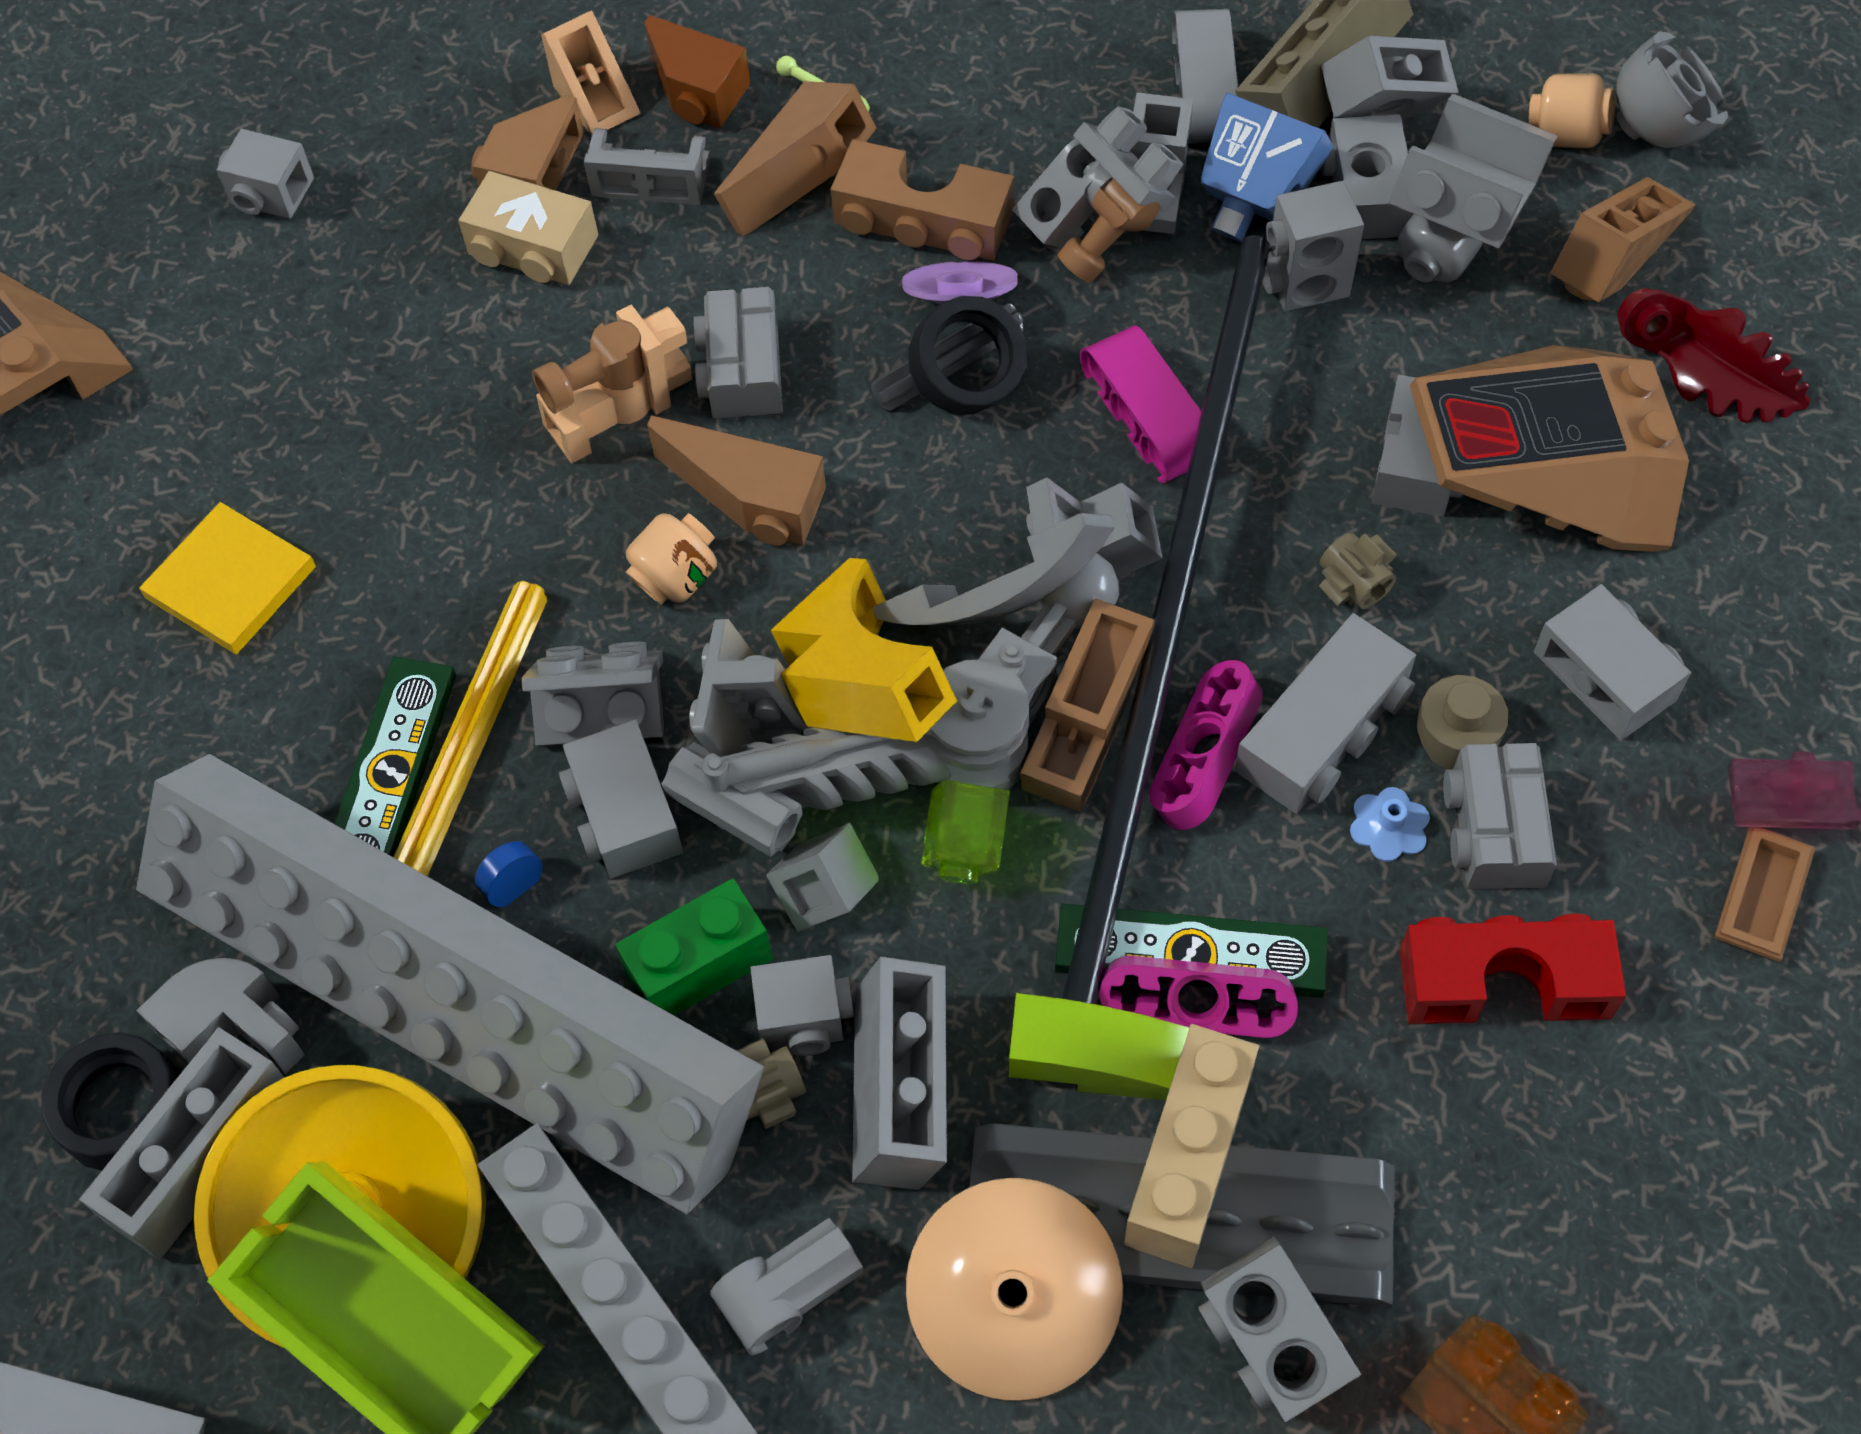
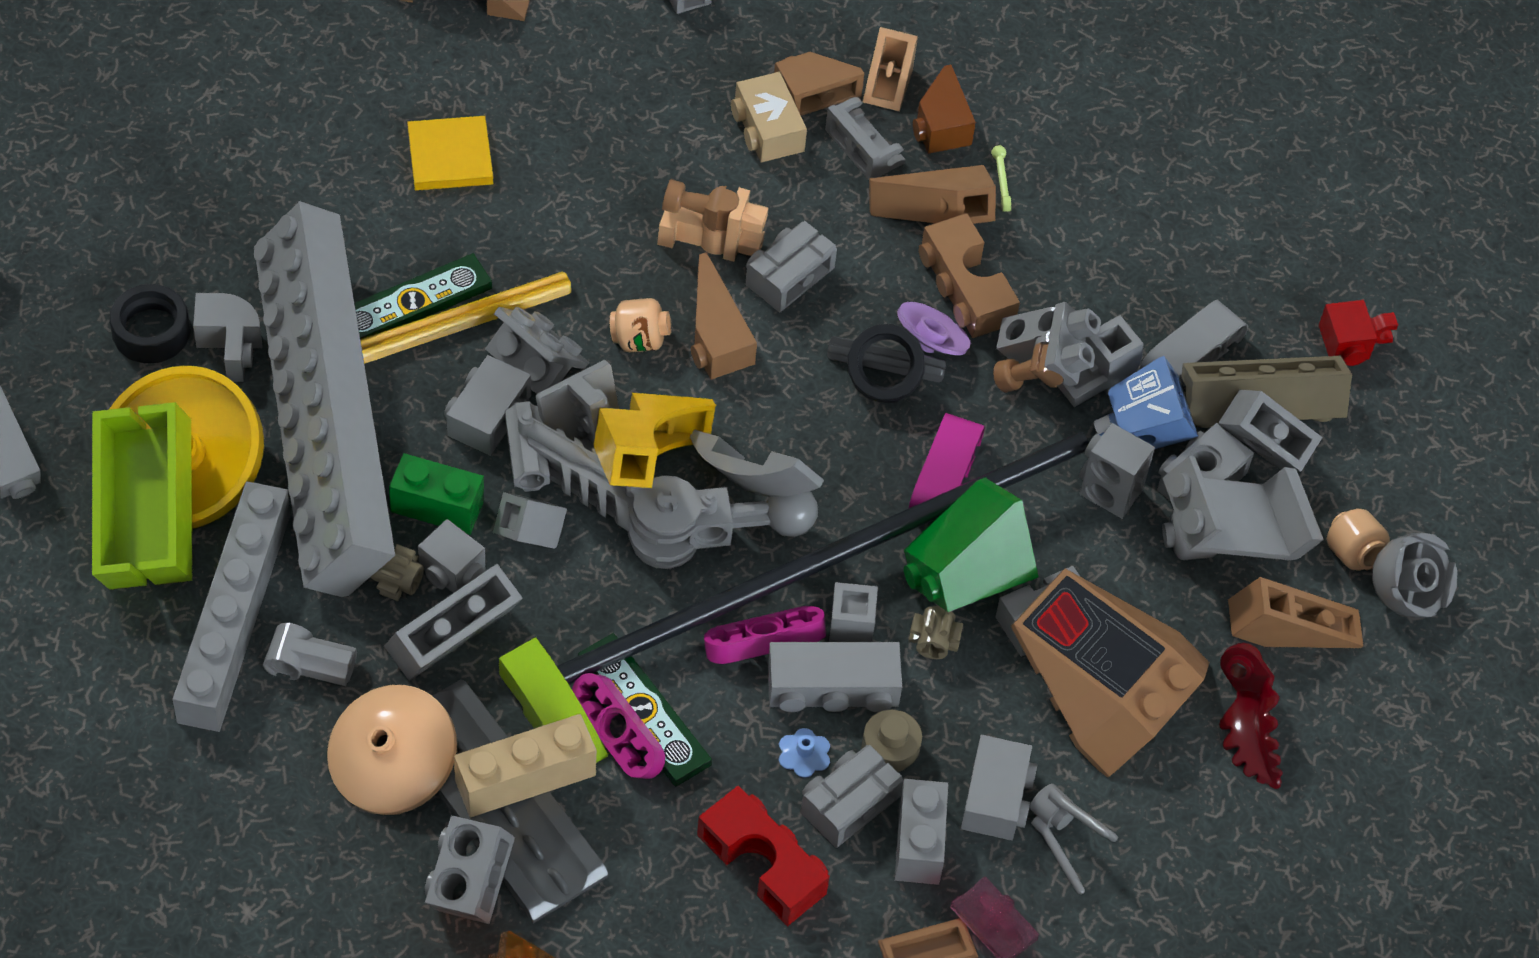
camera: 40 degrees right, 5 degrees down
(155, 1174) = (124, 360): light grey brick -> none
(508, 873) = (406, 388): blue tile -> none
(965, 830) = (607, 559): clear neon green brick -> none
(1087, 705) = (728, 561): medium nougat slope -> none
(1135, 535) = (842, 501): light grey brick -> none
(1269, 629) = (853, 613): none -> light grey panel
(1301, 447) = (972, 549): none -> green slope
(1615, 779) = (921, 831): none -> light grey brick
(1688, 625) = (1058, 810): none -> light grey plant

